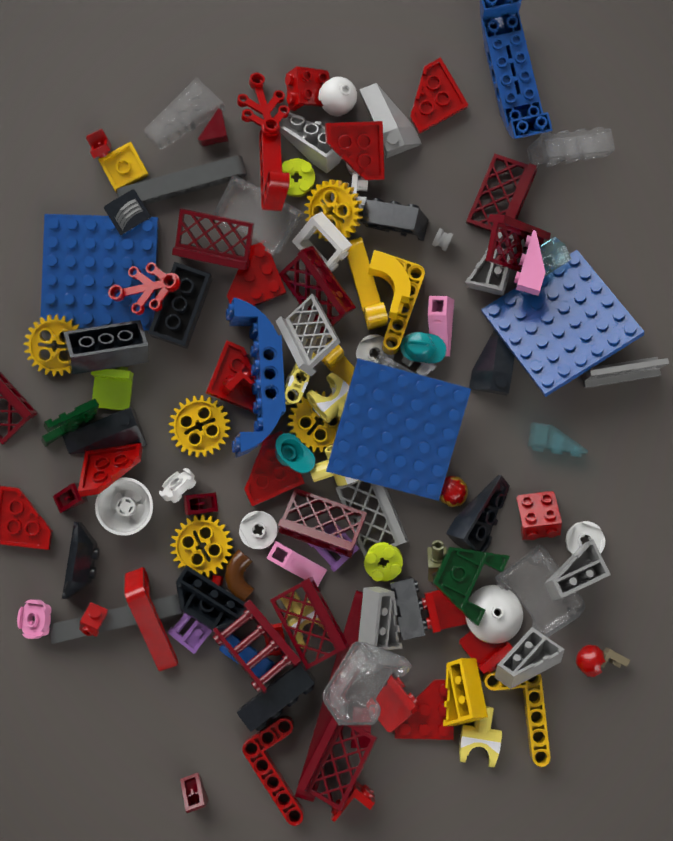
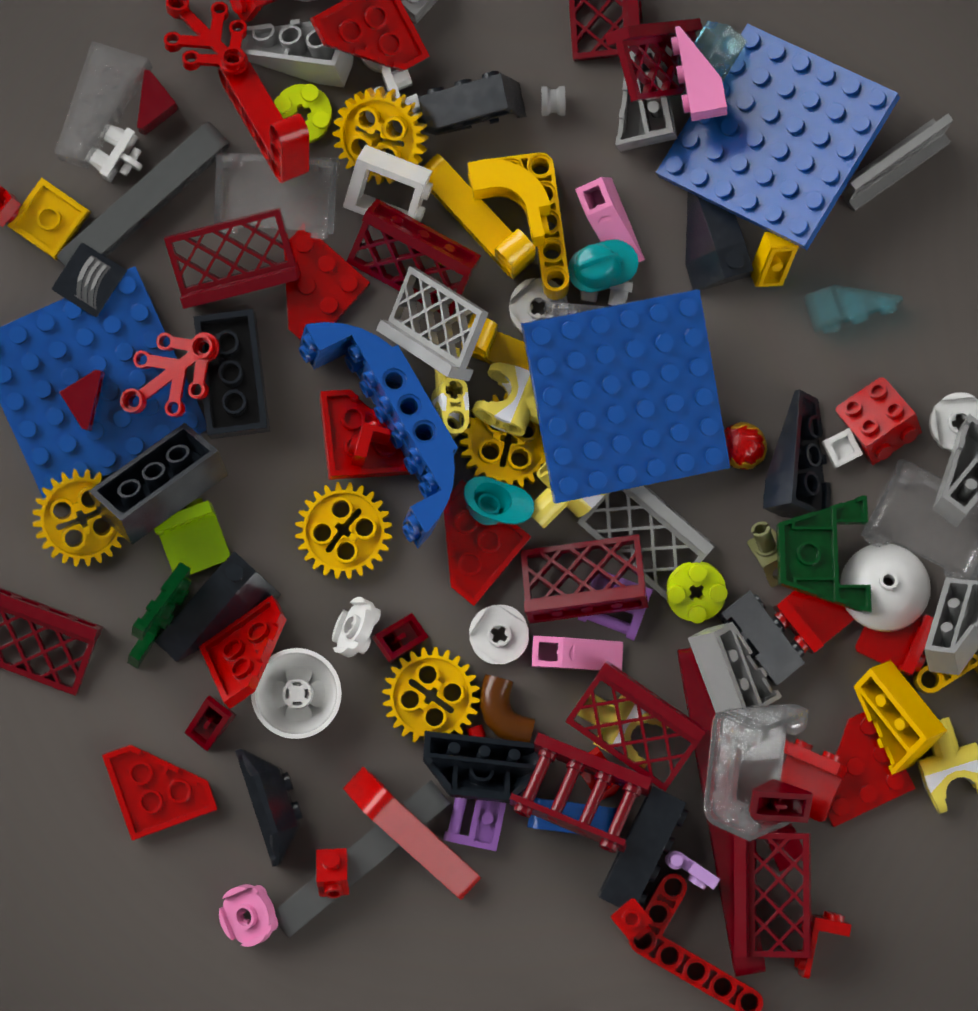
camera: 30 degrees left, 0 degrees up
(89, 277) = (83, 398): none -> dark red slope
(182, 151) = (123, 142): none -> white hips
(249, 735) = (632, 919): none -> red bracket
(302, 727) = (698, 874): none -> lavender plate
(369, 710) = (780, 802): none -> dark red slope
(509, 521) = (842, 448): none -> white plate
(522, 393) = (772, 260): none -> yellow slope

